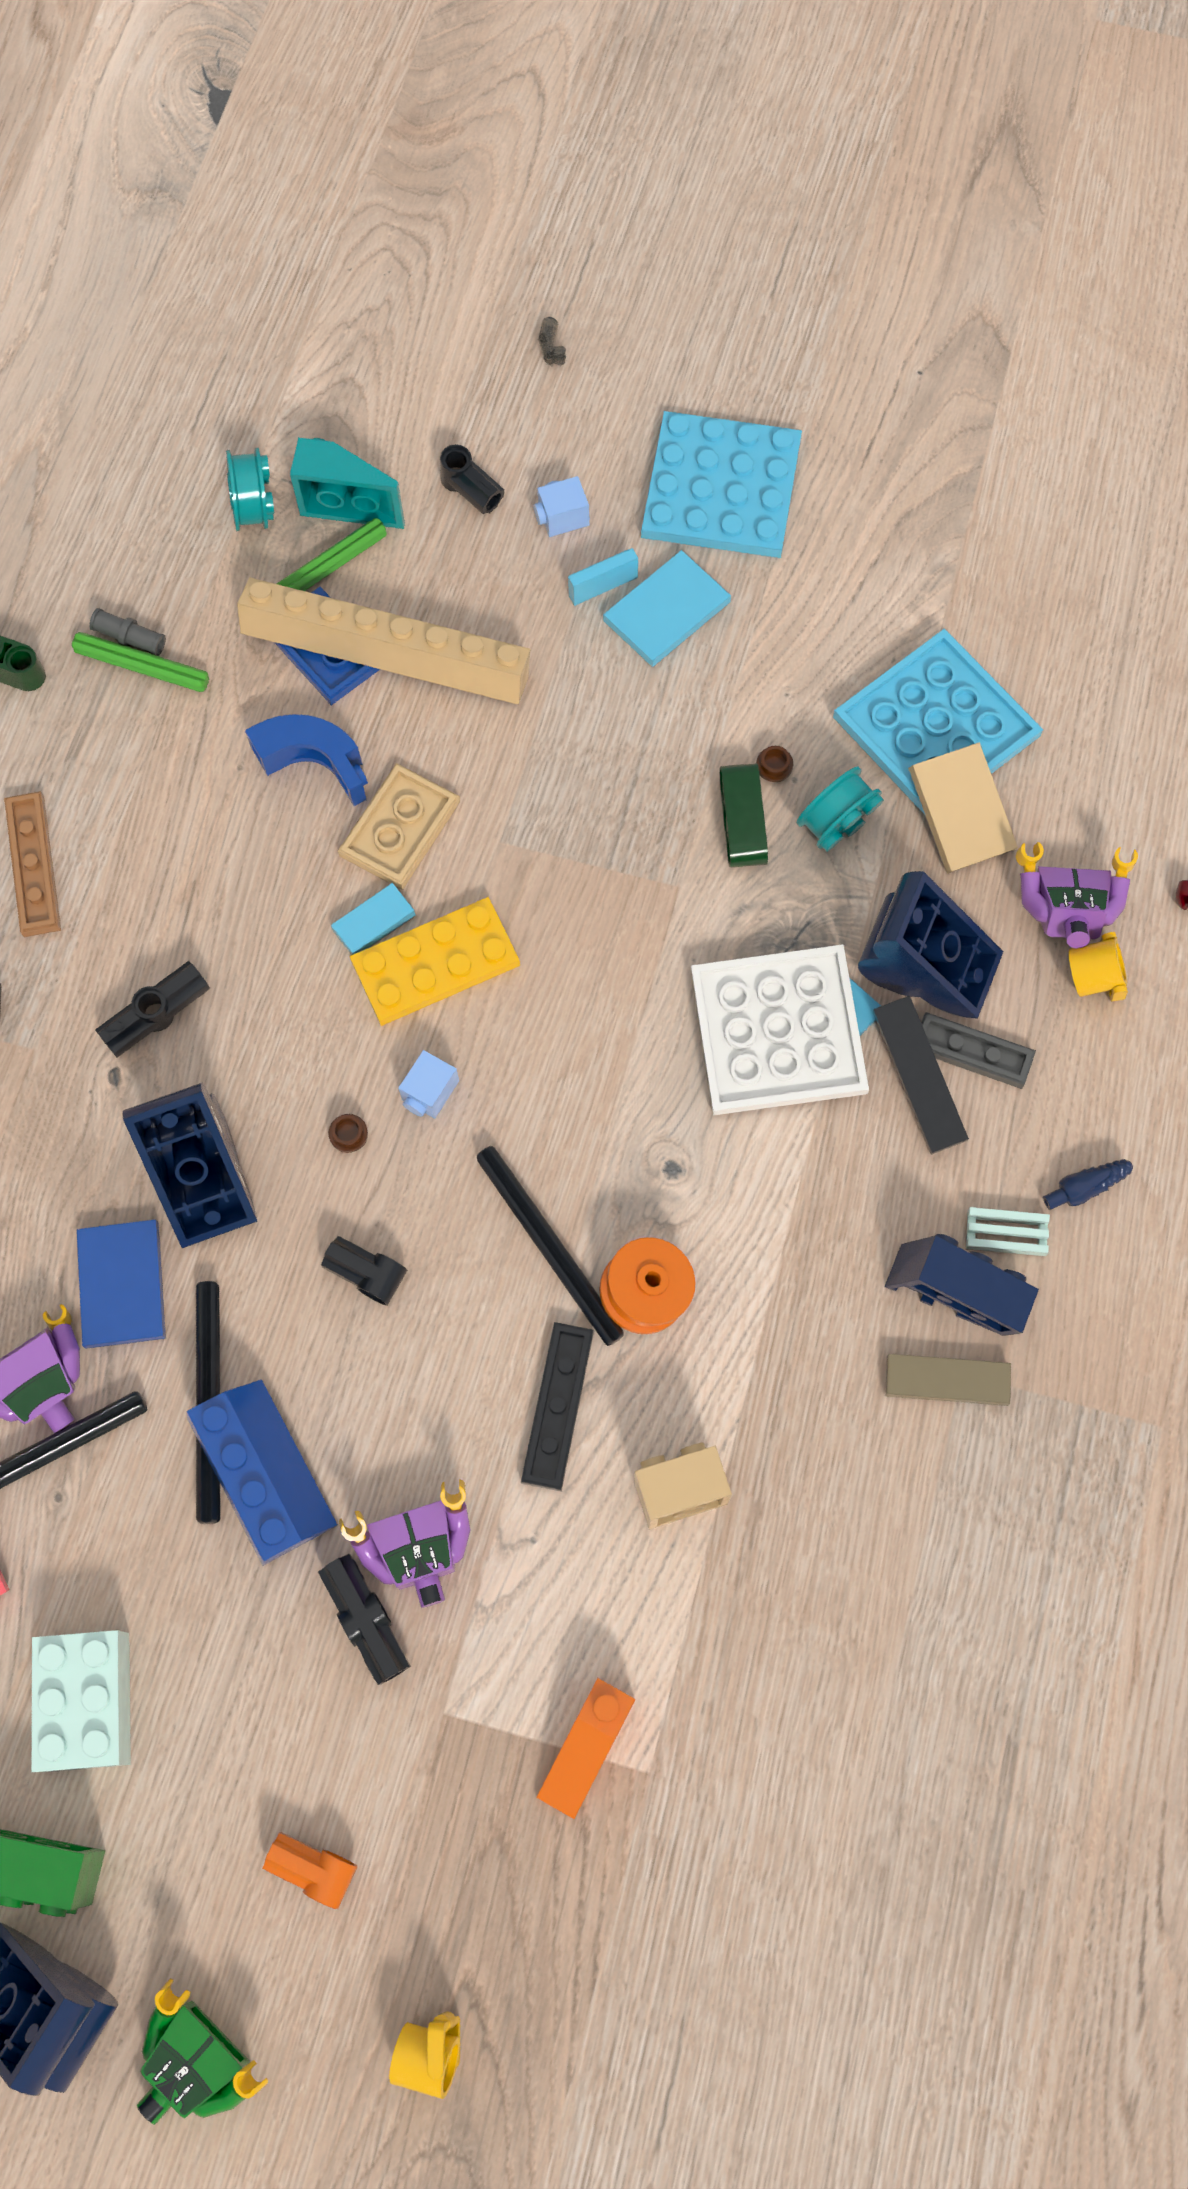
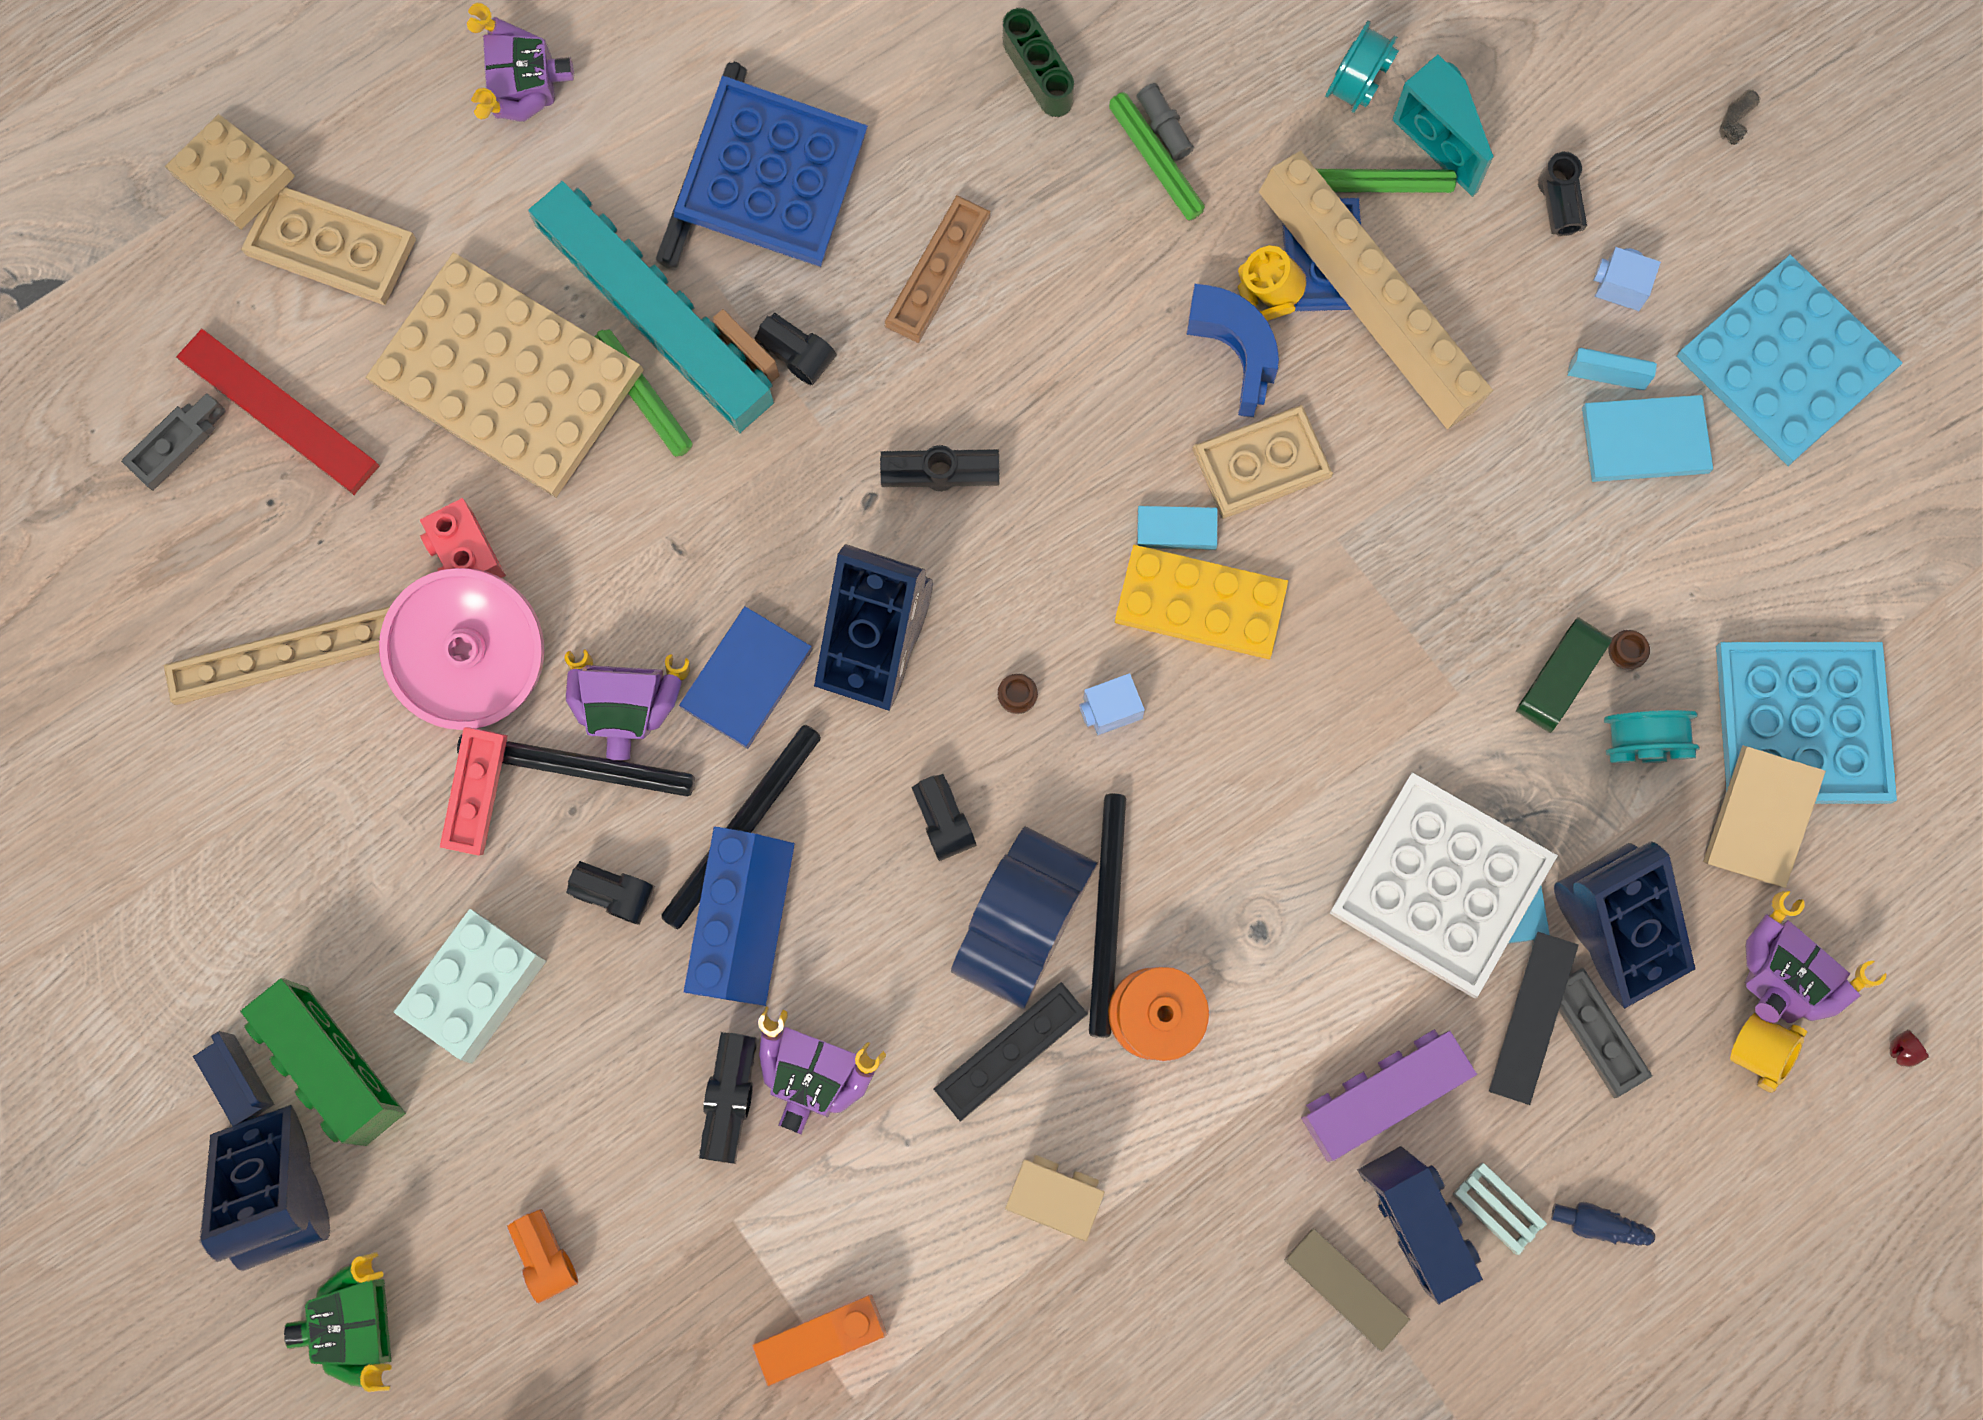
camera: 40 degrees right, 5 degrees up
(151, 1531) = (619, 895): none -> black piece
(302, 686) = (1273, 279): none -> yellow piece
(486, 1297) = (1022, 916): none -> dark blue brick
(863, 1213) = (1387, 1096): none -> medium lavender brick

